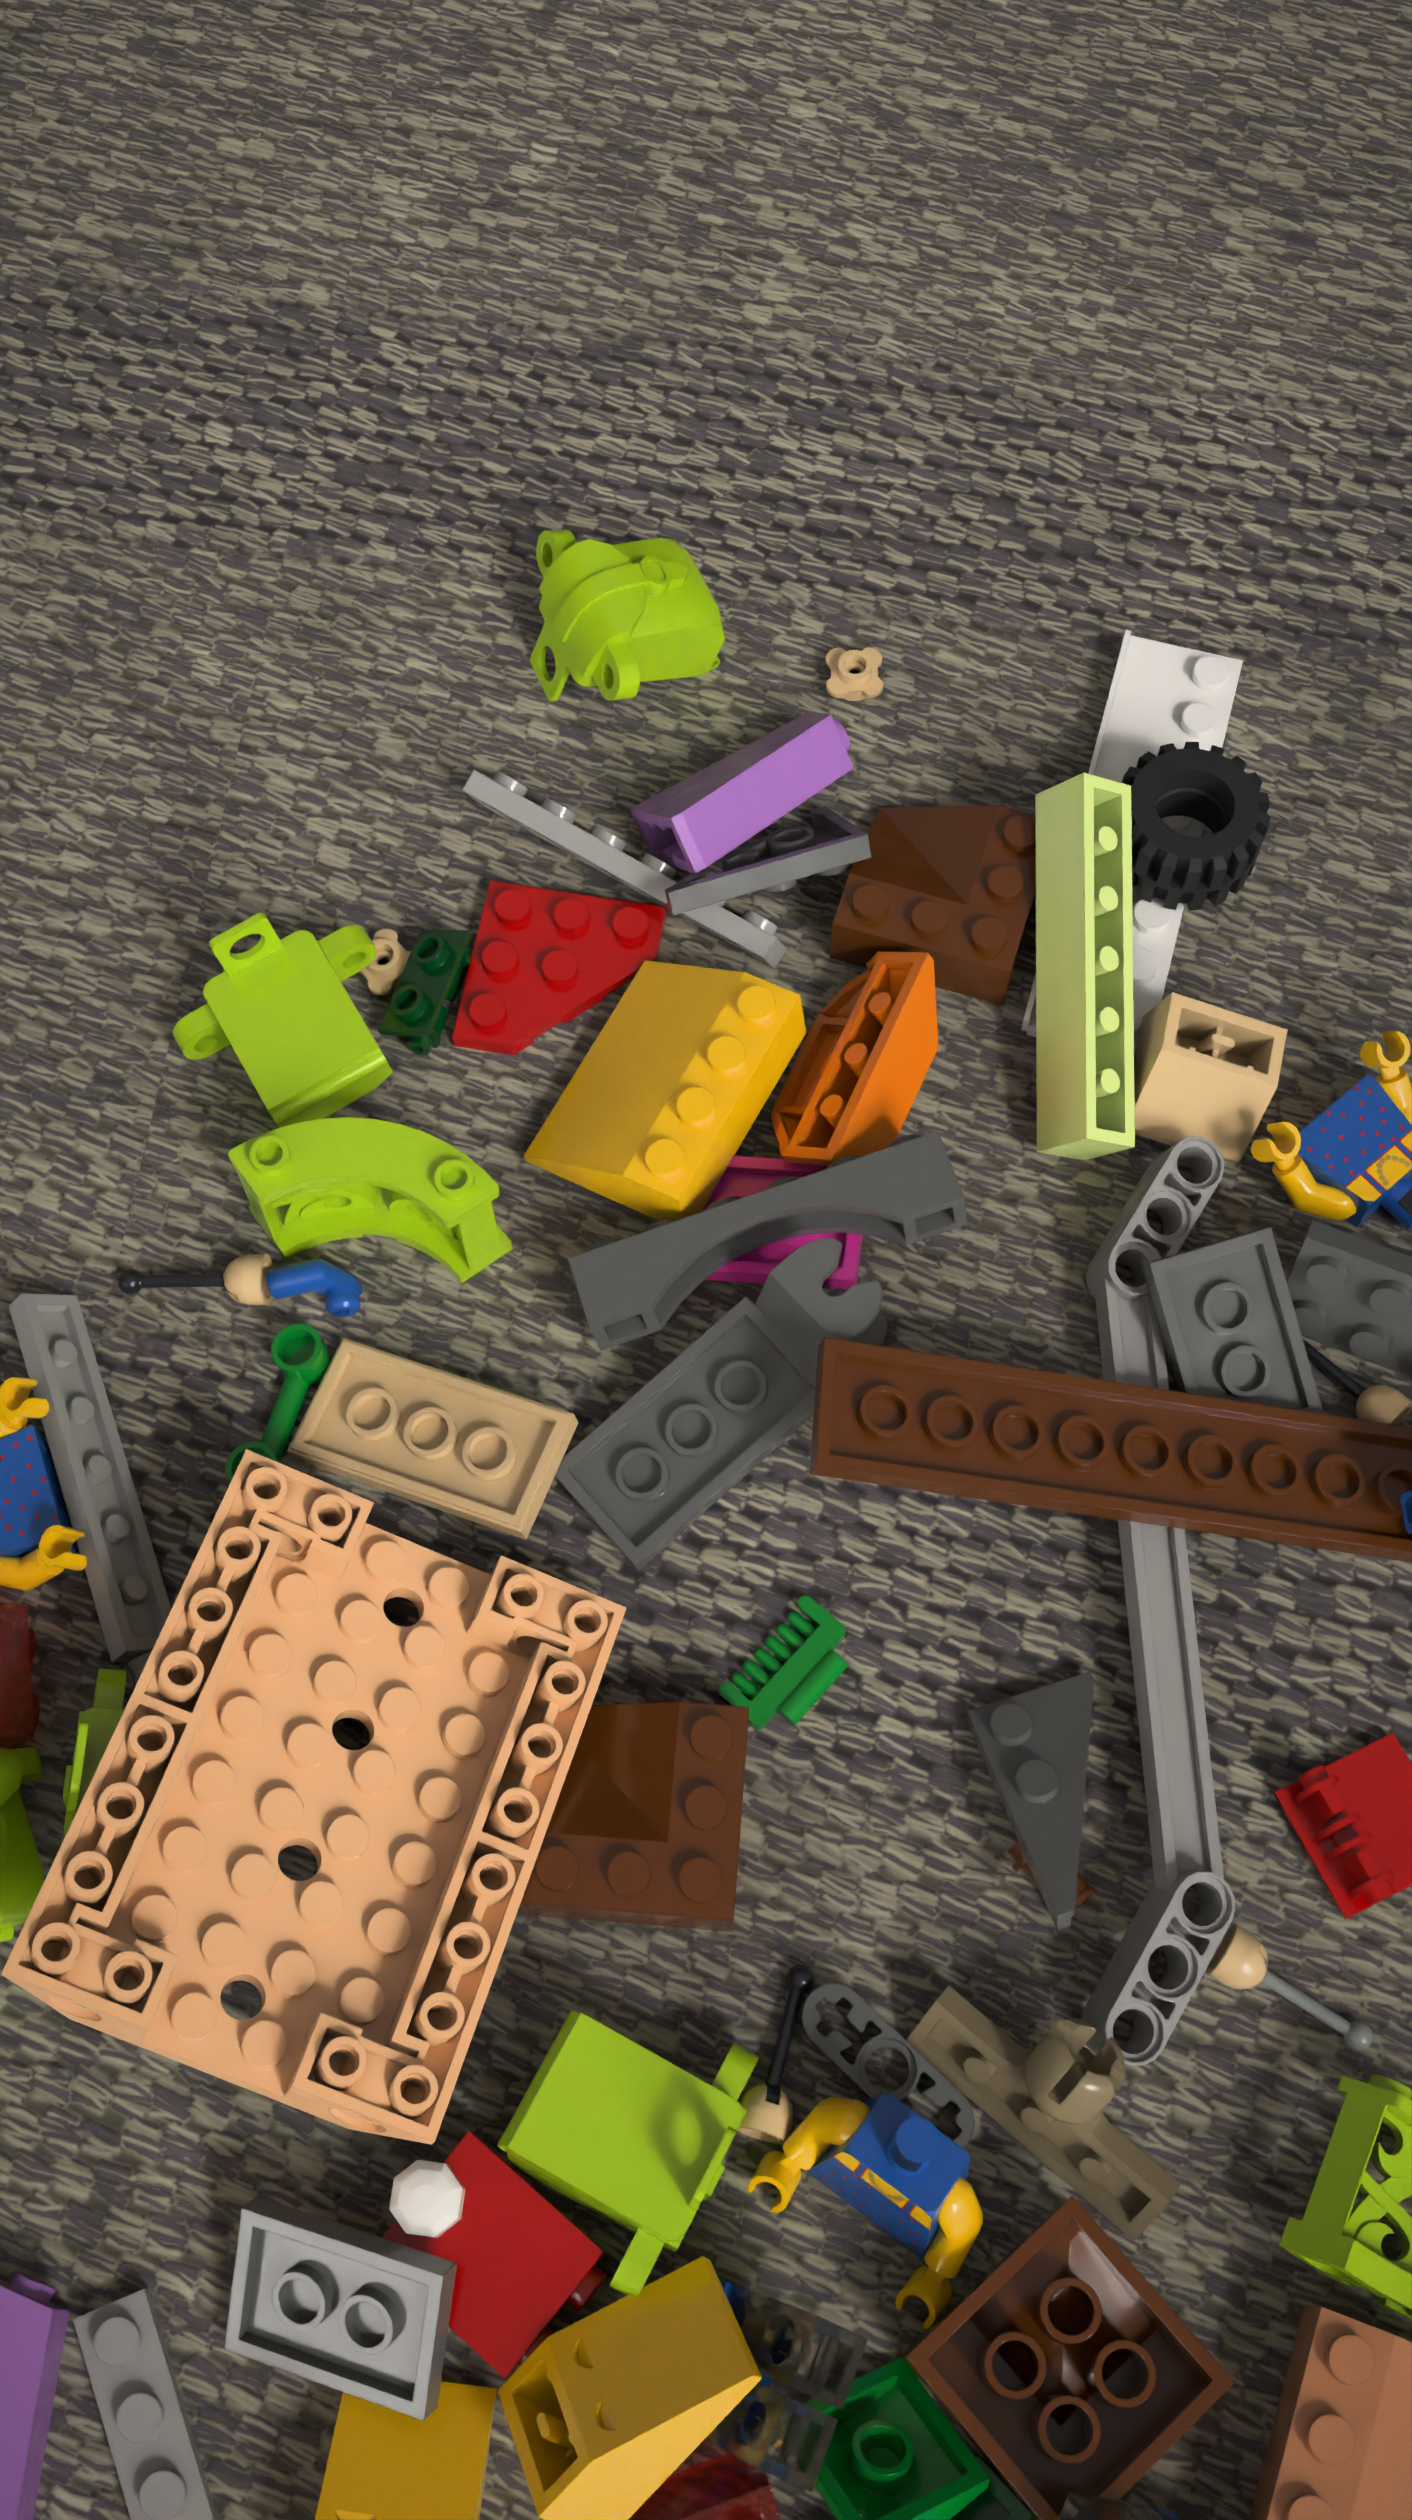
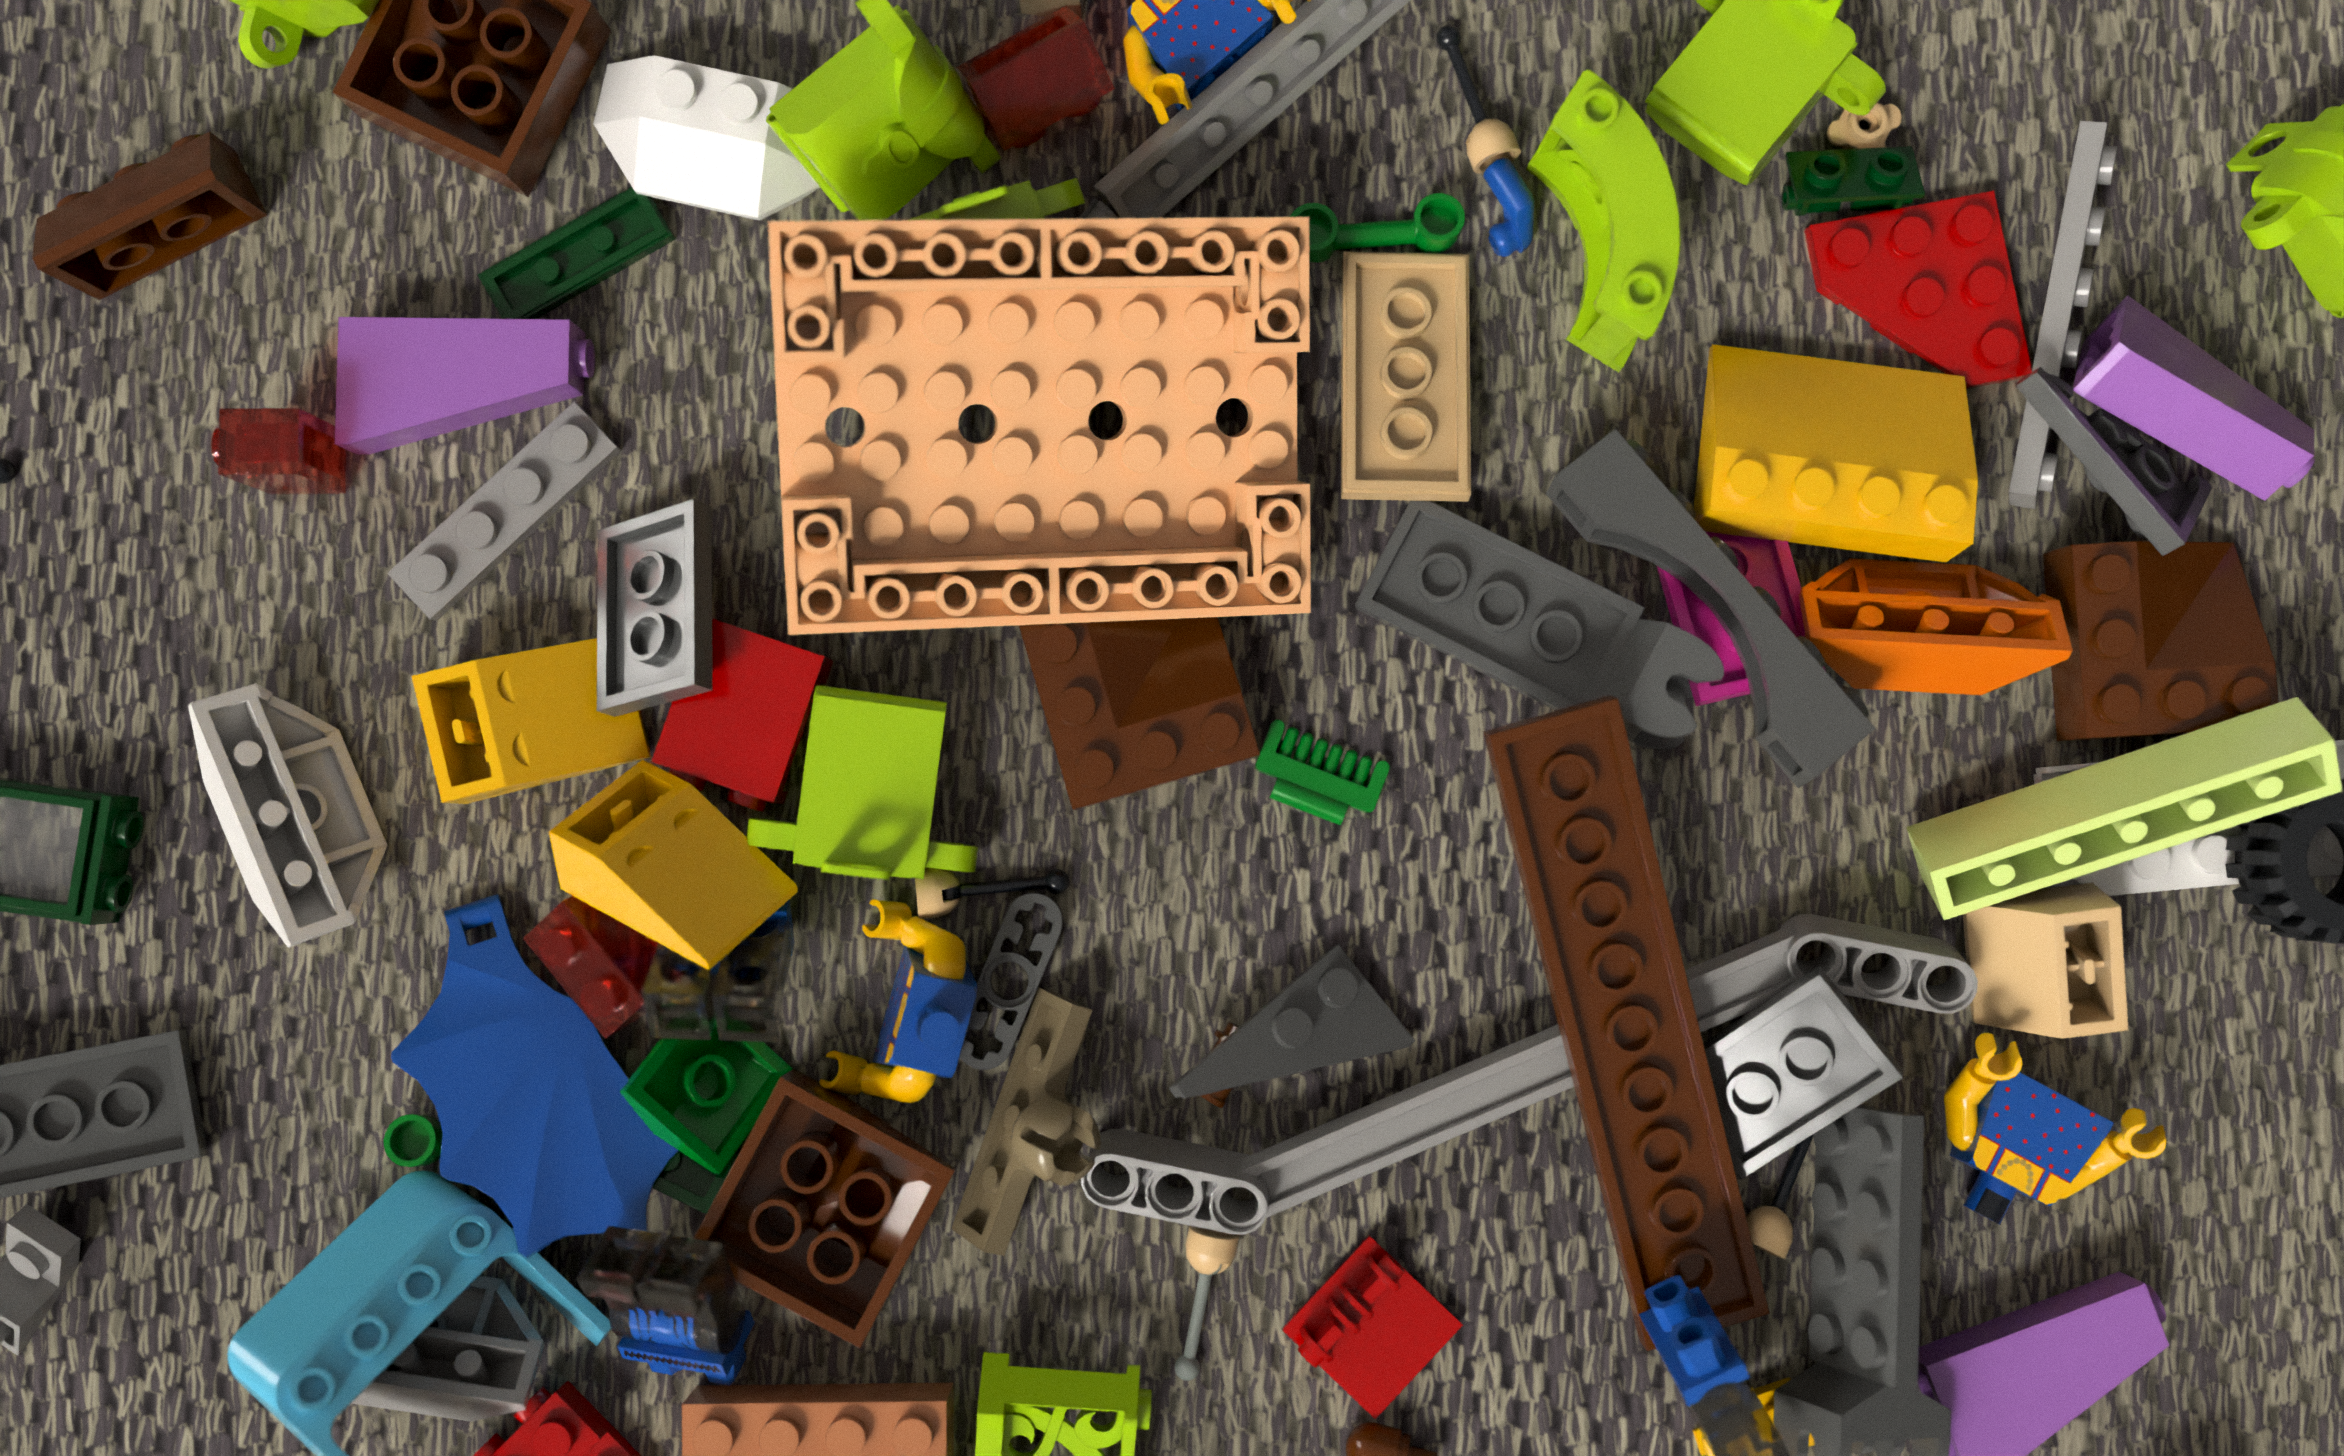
camera: 65 degrees right, 20 degrees up
(427, 2198) = (757, 645): white tile -> none

